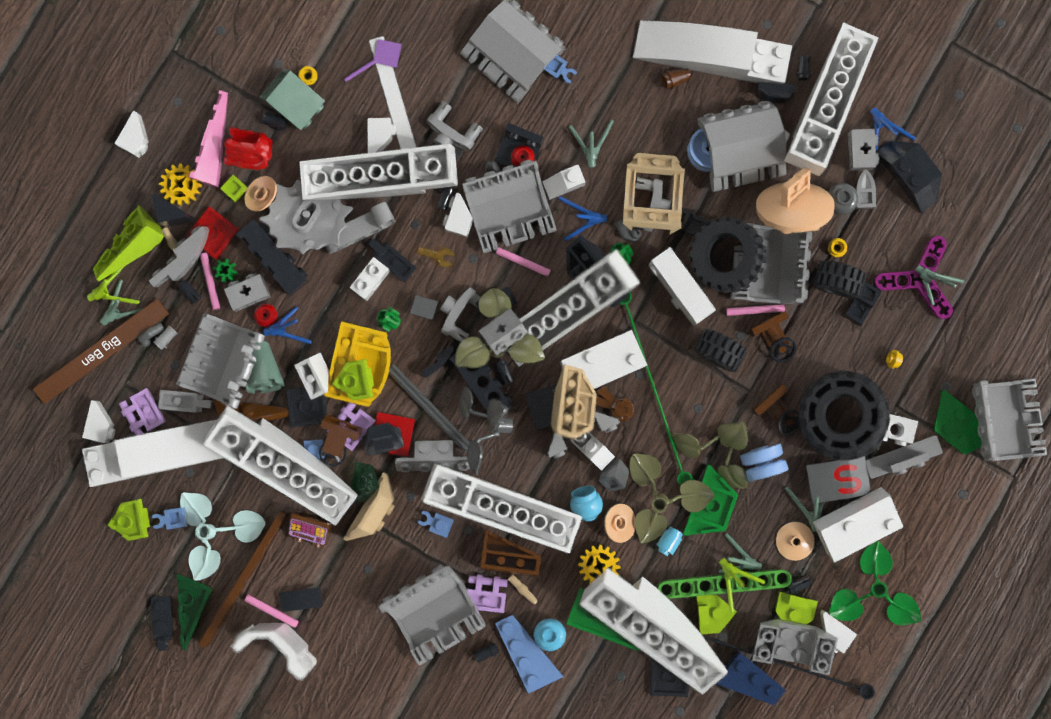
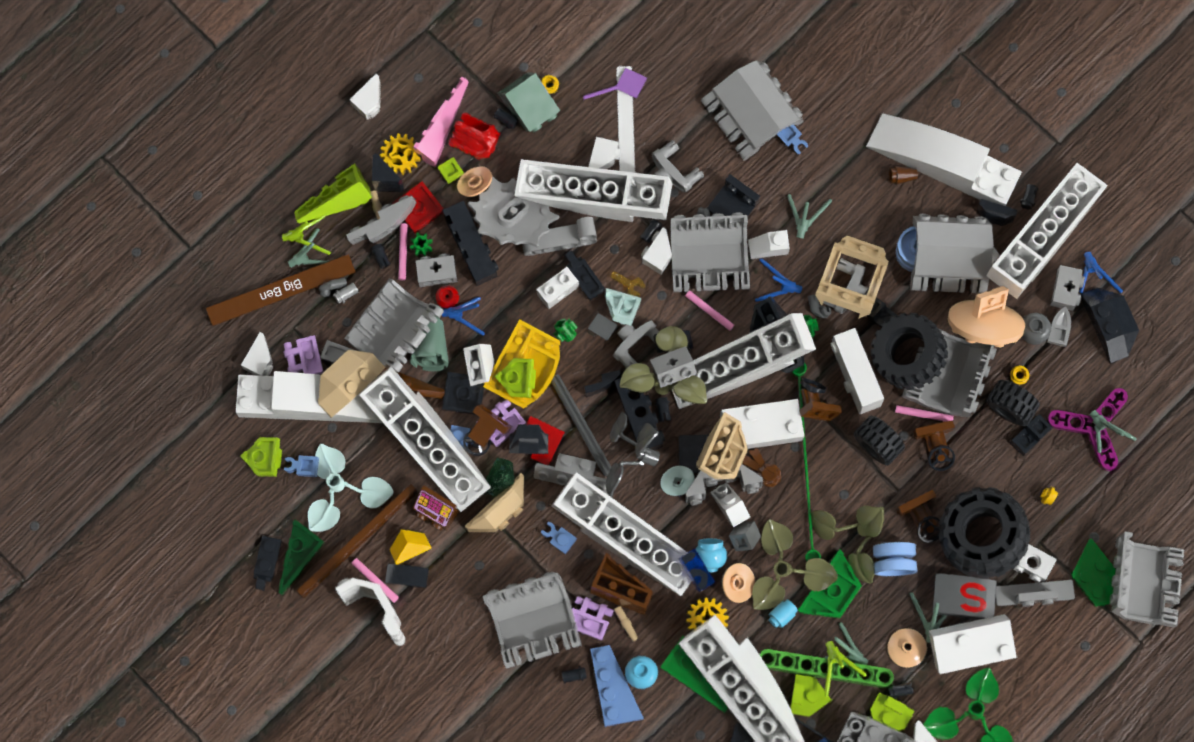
camera: 15 degrees right, 10 degrees down
(189, 428) = (347, 379): none -> tan wedge
(294, 570) = (408, 545): none -> yellow slope
(437, 281) = (622, 306): none -> light aqua wing
(518, 152) = (732, 205): red plate -> none
(529, 436) = (677, 474): none -> light aqua piece
(578, 525) = (696, 570): none -> clear blue slope
(648, 333) = (813, 407): none -> reddish brown piece

